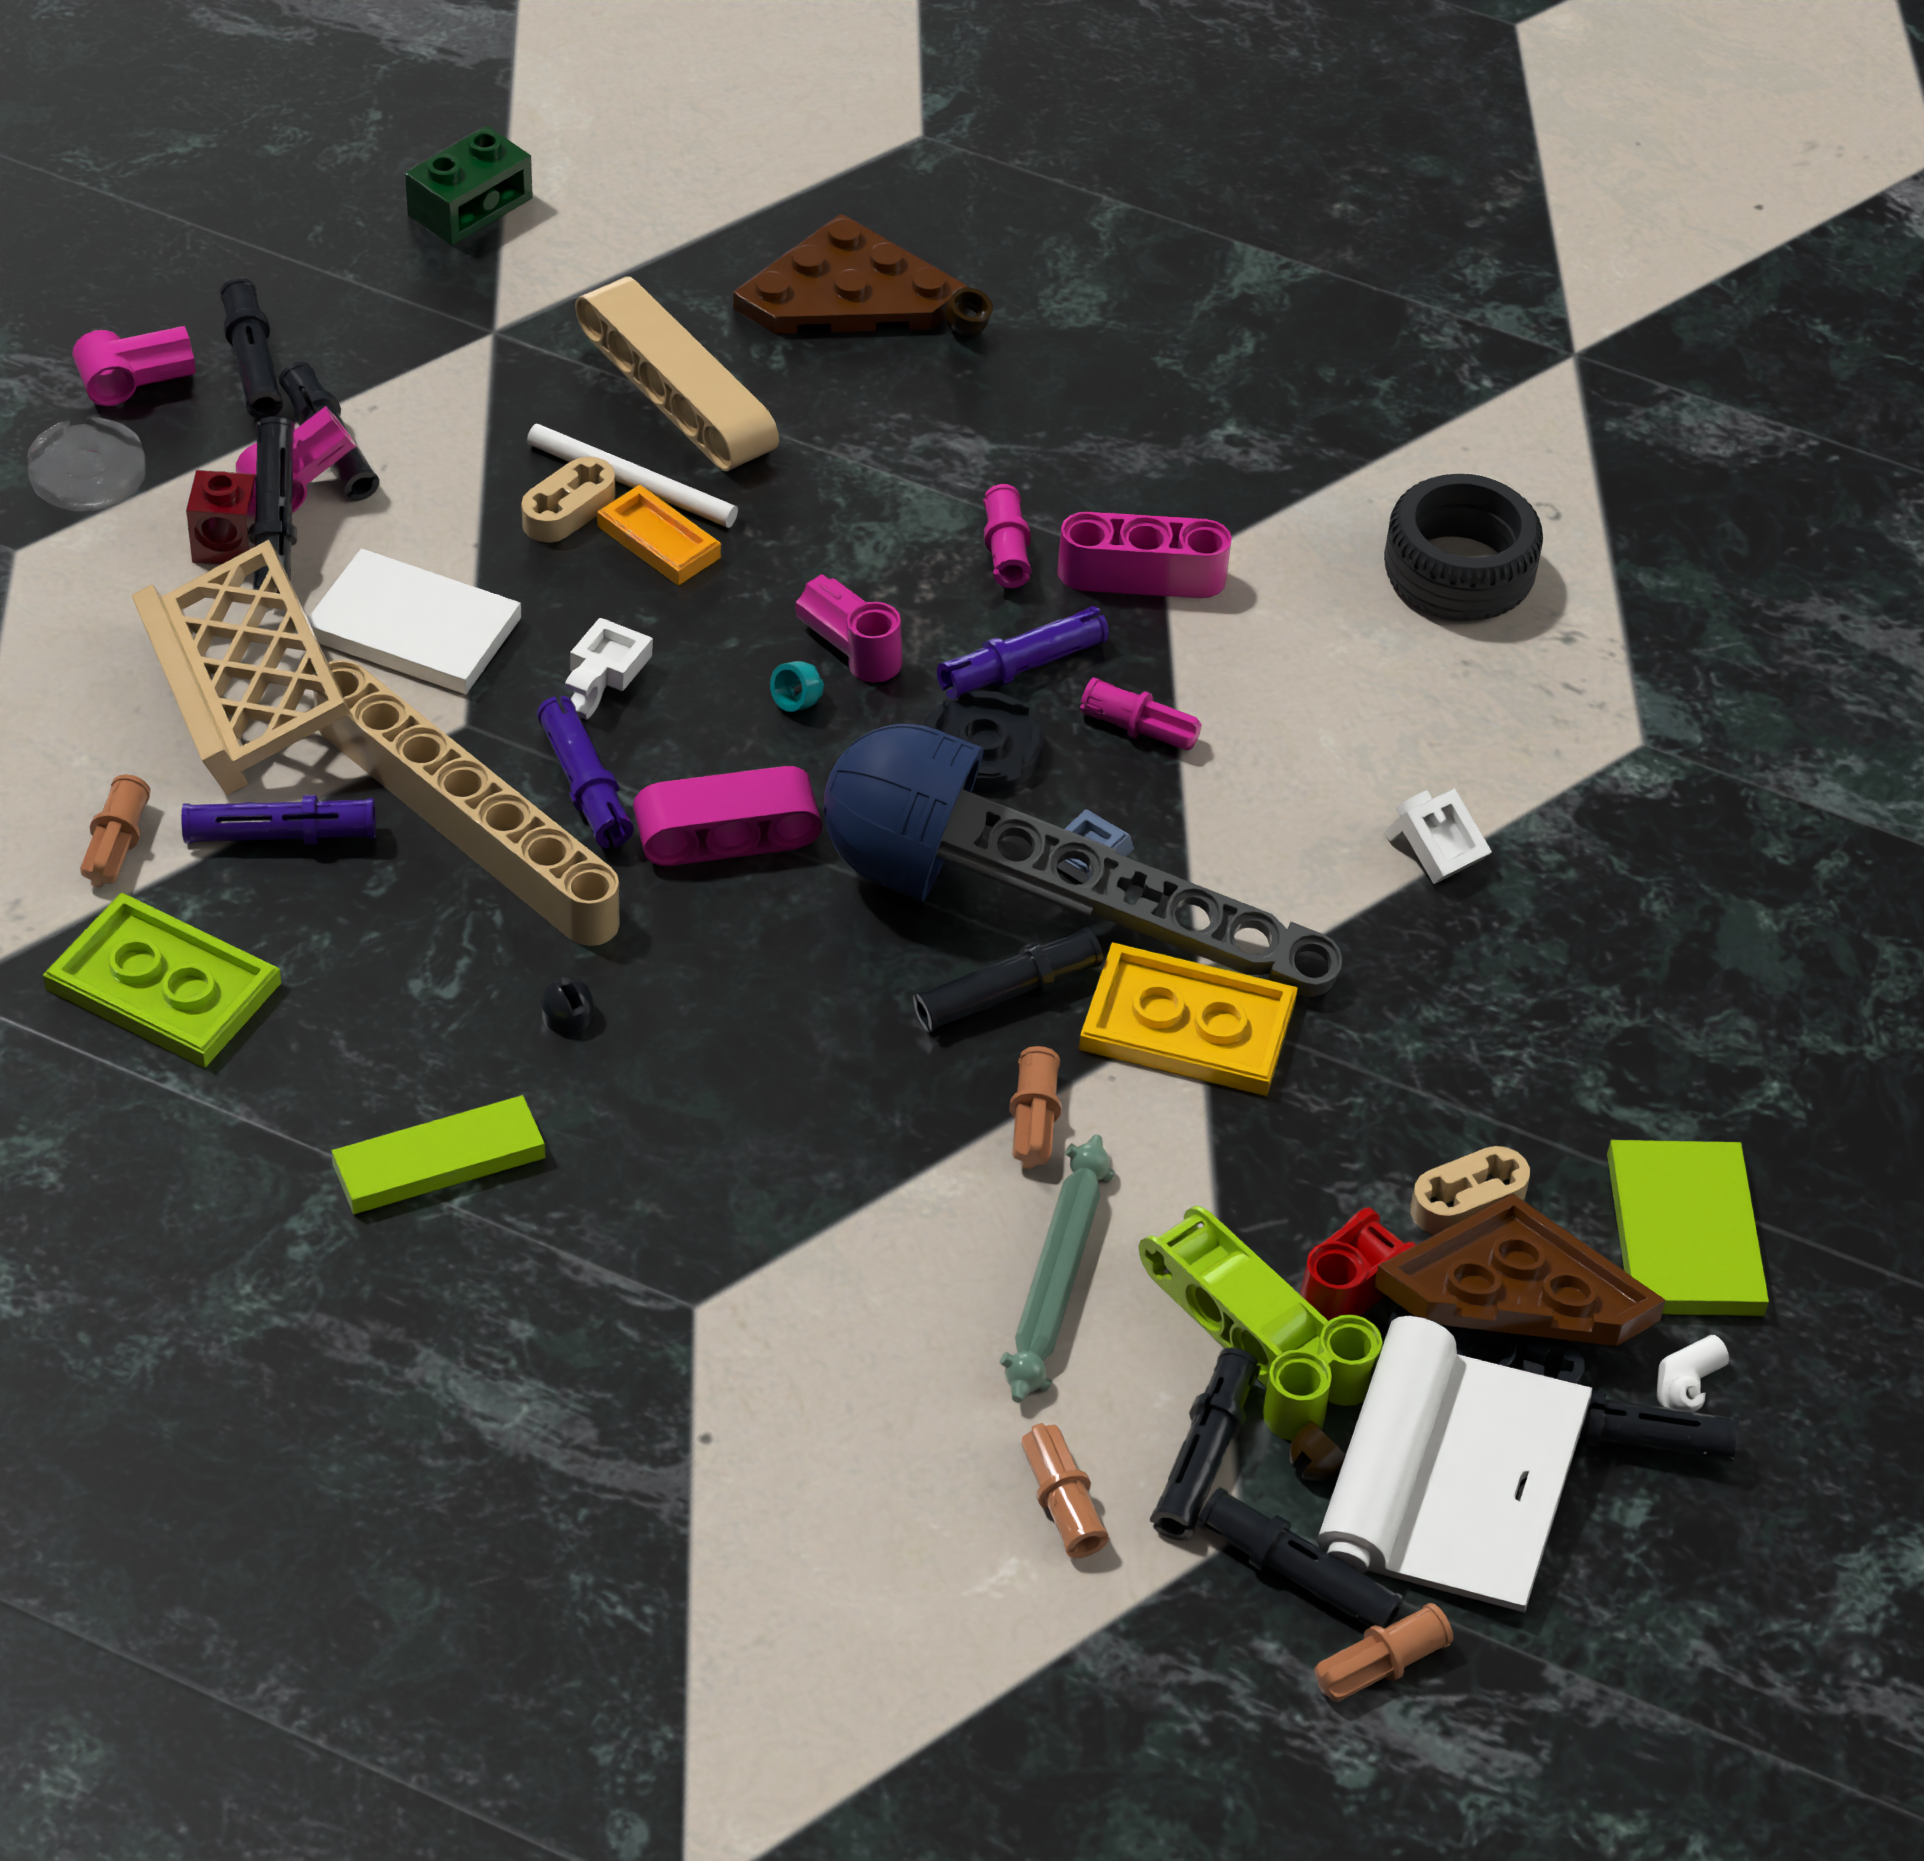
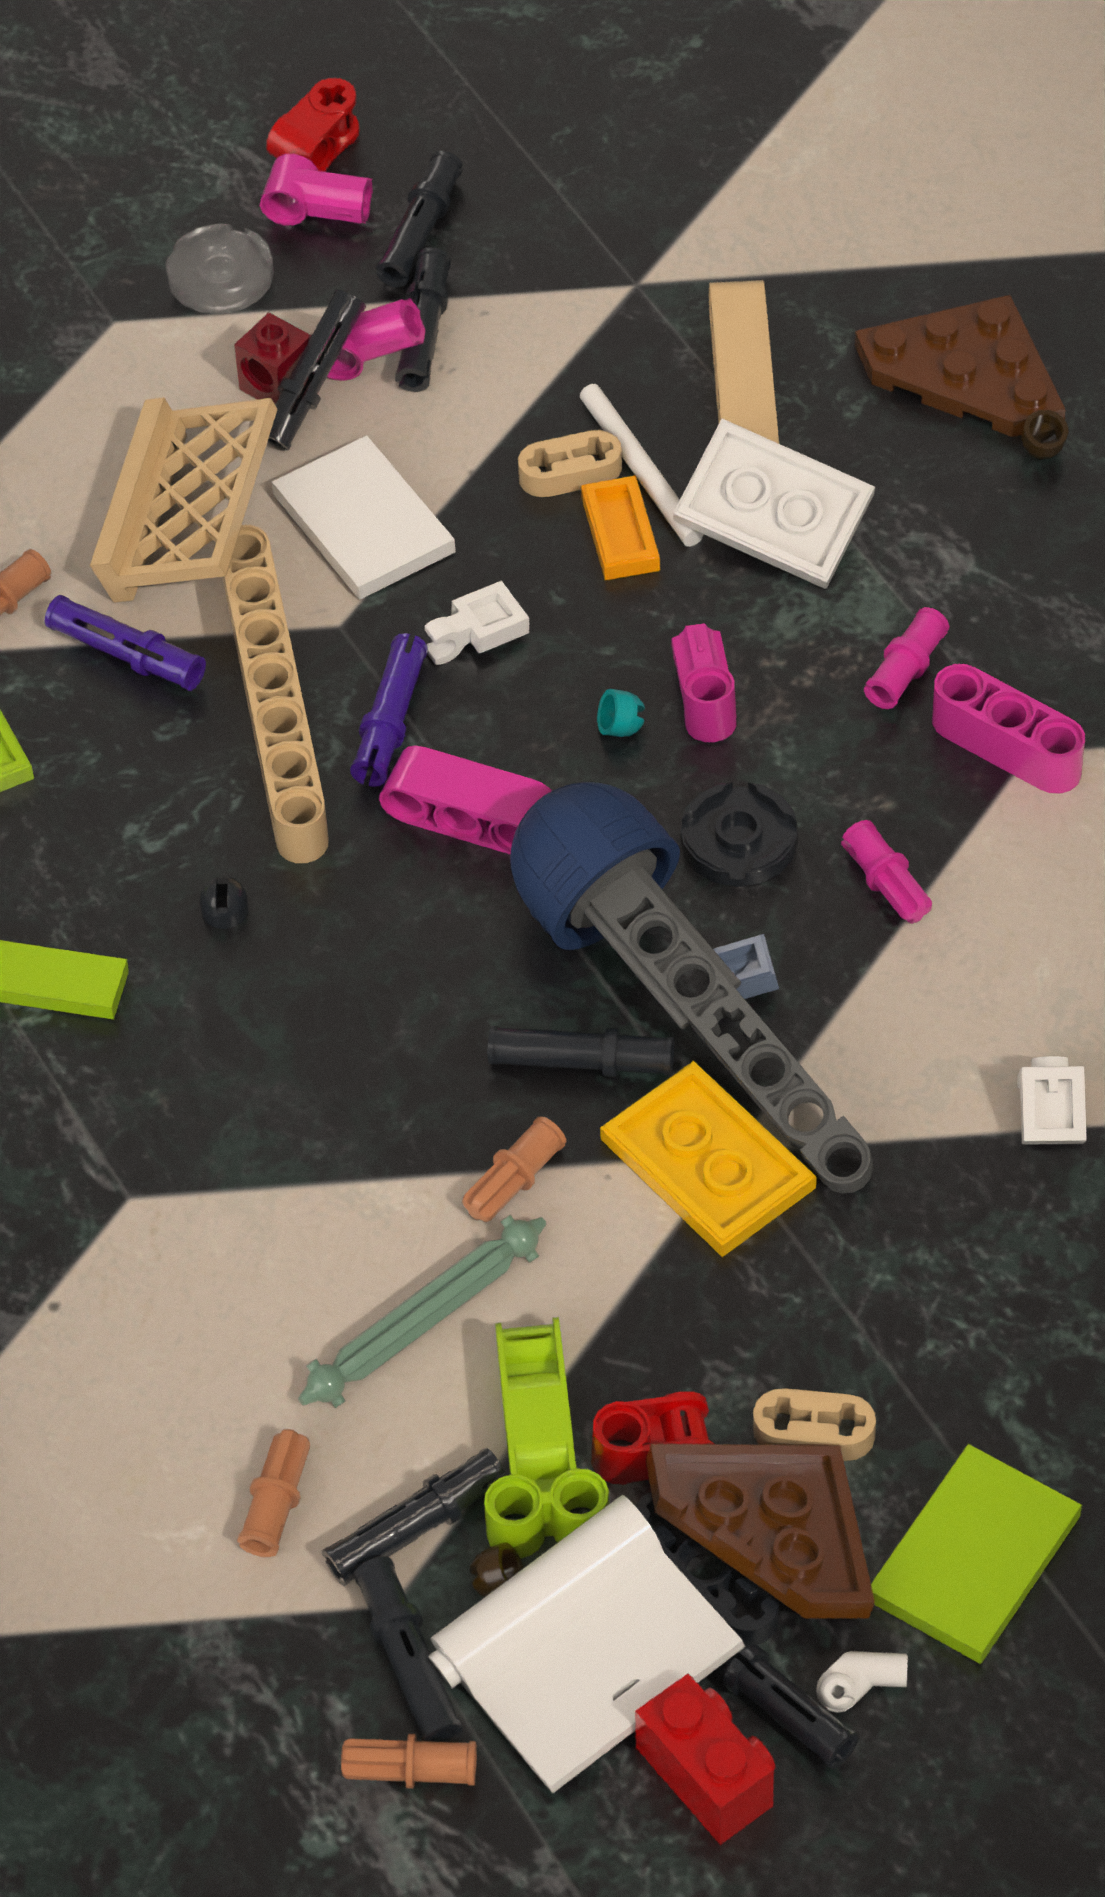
camera: 40 degrees right, 5 degrees up
(86, 298) = (318, 124): none -> red piece
(469, 185) = (708, 140): dark green brick -> none
(792, 454) = (773, 503): none -> white tile
(1003, 659) = (832, 770): dark purple pin -> none
(1634, 1507) = (705, 1757): none -> red brick

